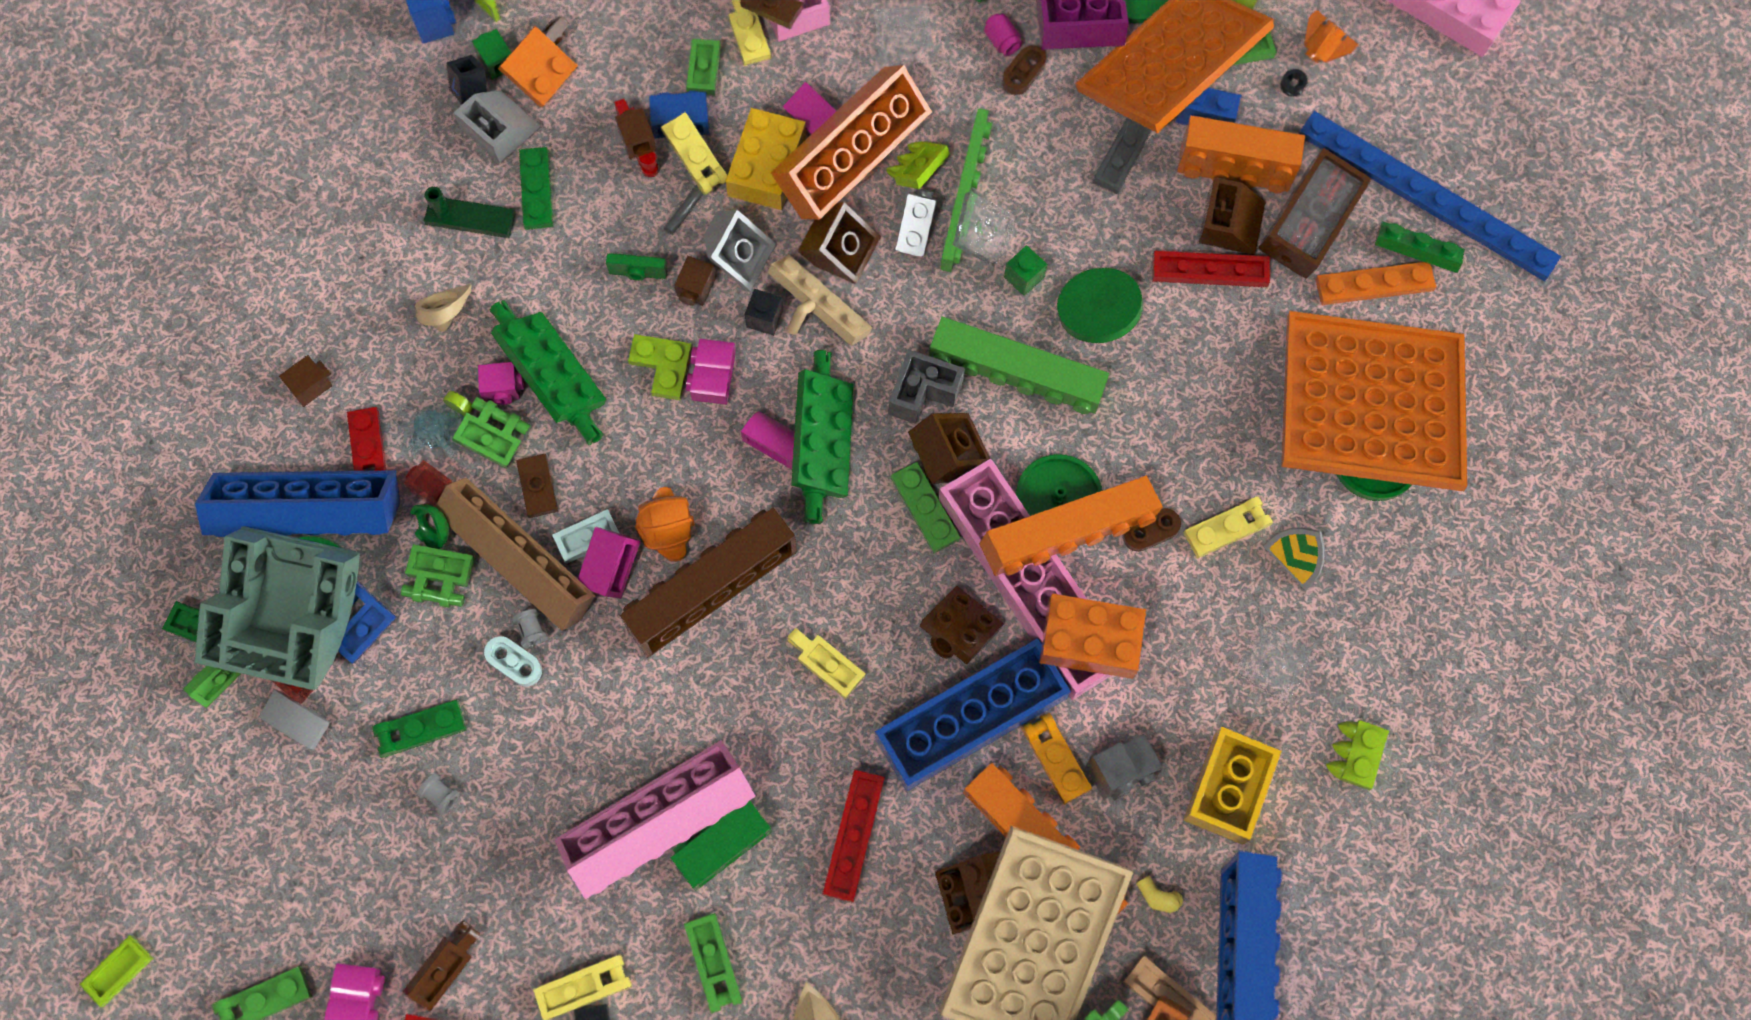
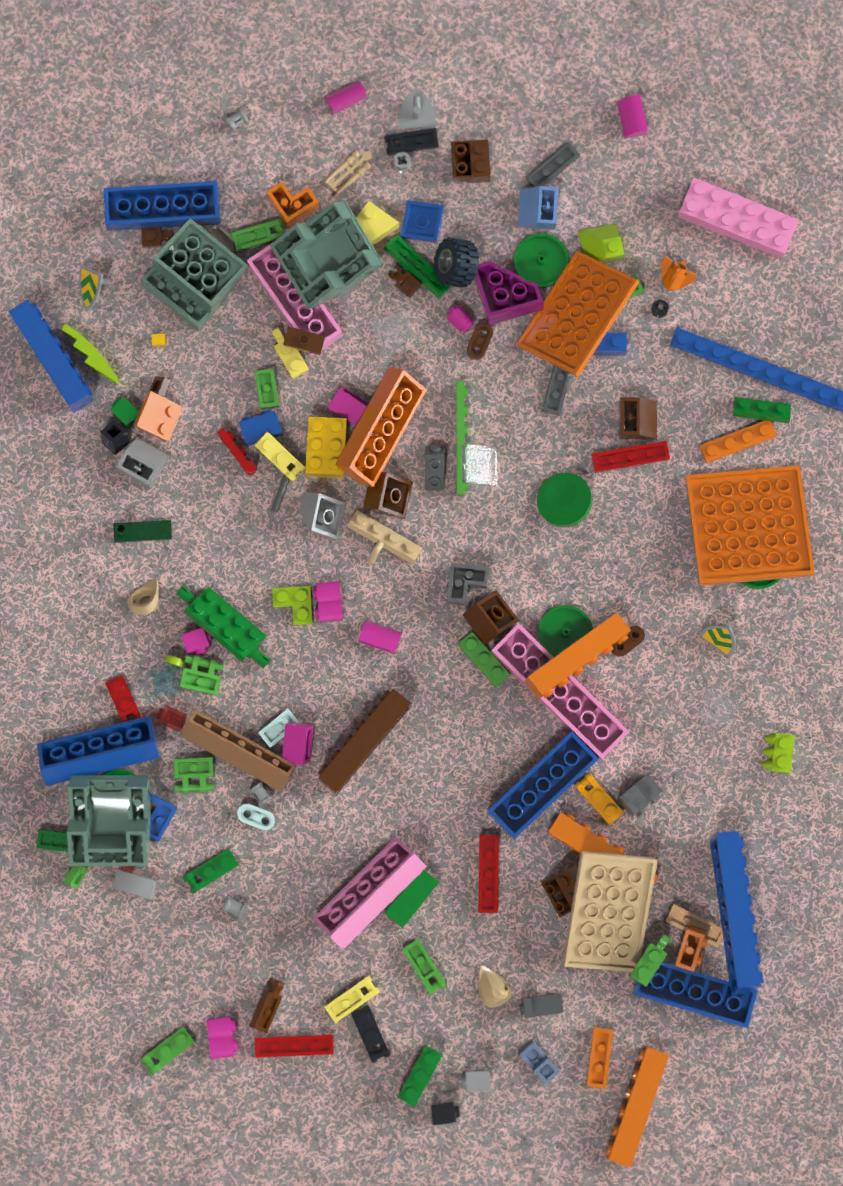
camera: 15 degrees left, 10 degrees up
(116, 971) = (76, 1054): lime tile -> none
(307, 380) = (74, 668): reddish brown brick -> none
(426, 533) = (178, 749): green piece -> none
(536, 188) = (179, 501): green plate -> none
(537, 485) = (238, 702): reddish brown plate -> none
(635, 133) = (239, 454): reddish brown brick -> none
(636, 267) = (261, 543): green plate -> none
(665, 524) = (326, 709): orange piece -> none
(695, 281) = (301, 544): reddish brown brick -> none
(764, 312) = (351, 555): black brick -> none
(821, 436) = (409, 629): green plate -> none
(827, 663) = (447, 773): light yellow plate -> none
(918, 165) = (426, 427): lime plate -> none
(960, 626) = (523, 731): reddish brown plate -> none
(1019, 365) = (521, 552): bright green brick -> none
(1025, 270) = (512, 487): green brick -> none
(1093, 636) = (604, 724): orange brick -> none
(1157, 899) = (676, 869): light yellow arm -> none
(1227, 527) = (673, 629): light yellow plate -> none
(1232, 785) = (706, 792): yellow brick -> none
(1240, 154) = (634, 375): orange brick -> none
(1314, 213) = (690, 404): brick -> none

